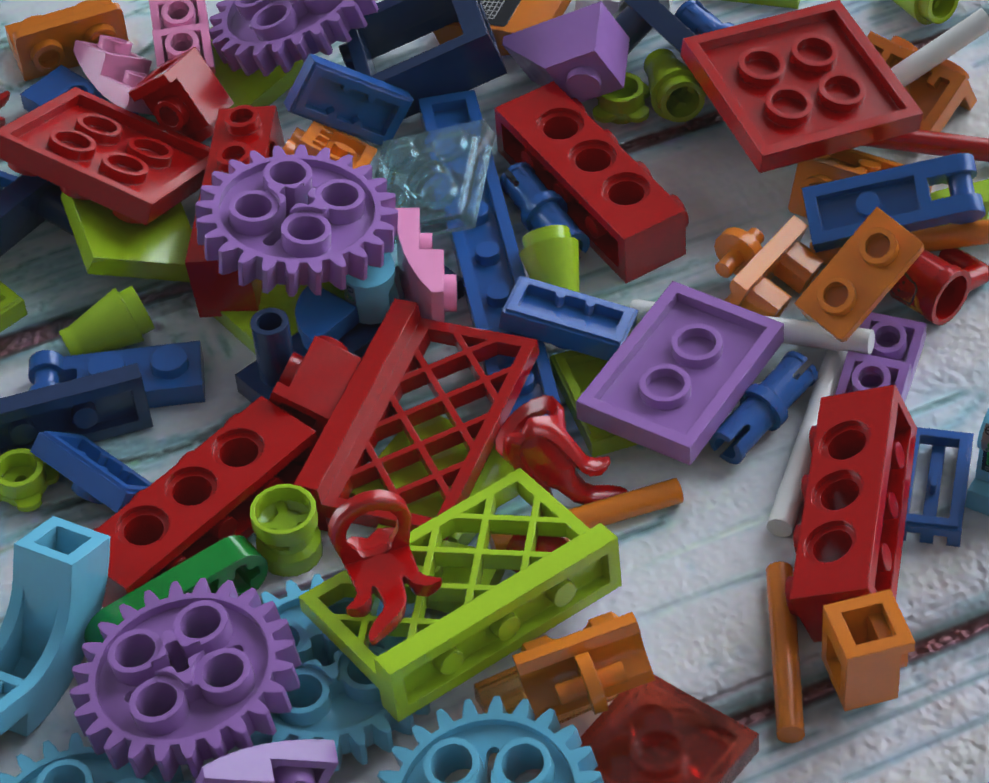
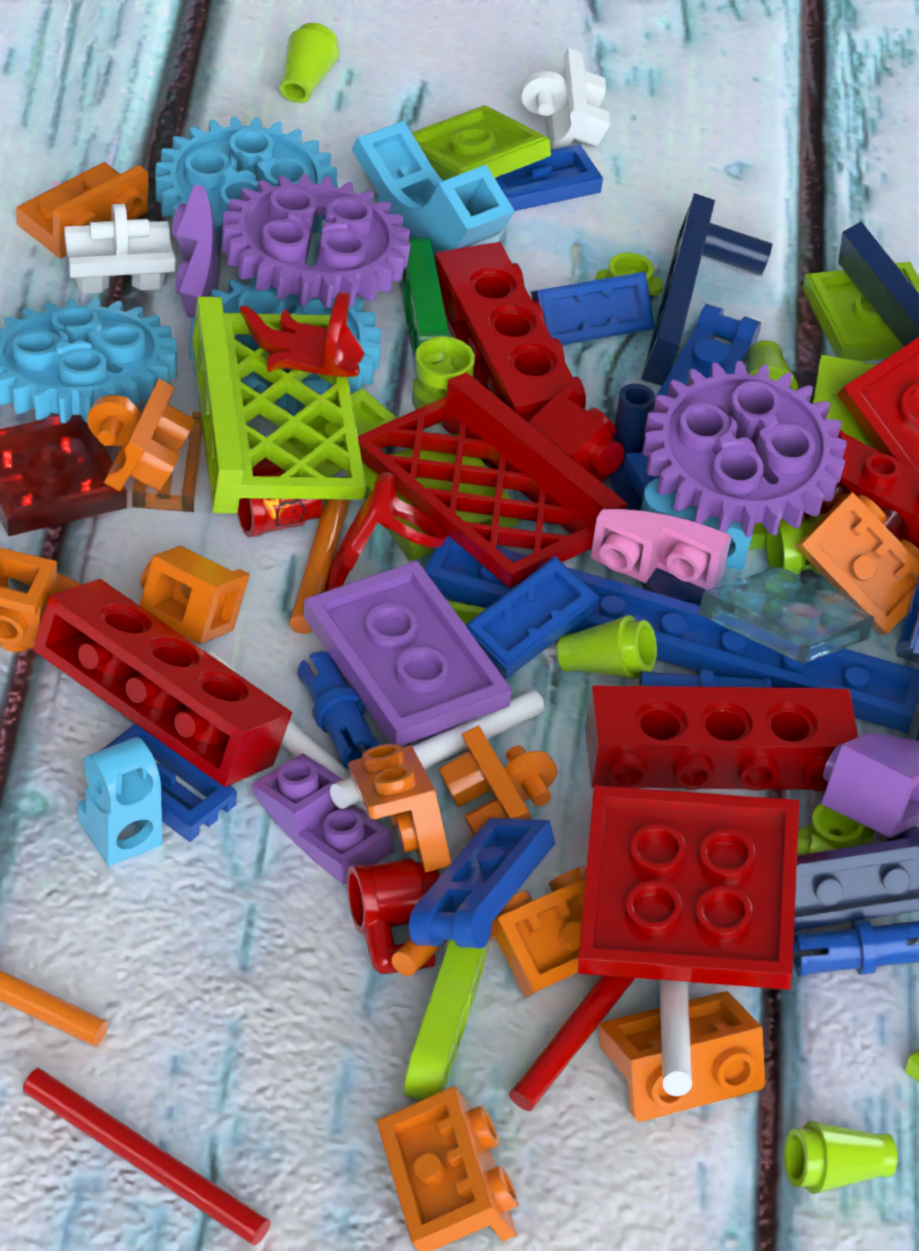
camera: 110 degrees right, 0 degrees up
(734, 546) = (192, 594): none -> orange brick

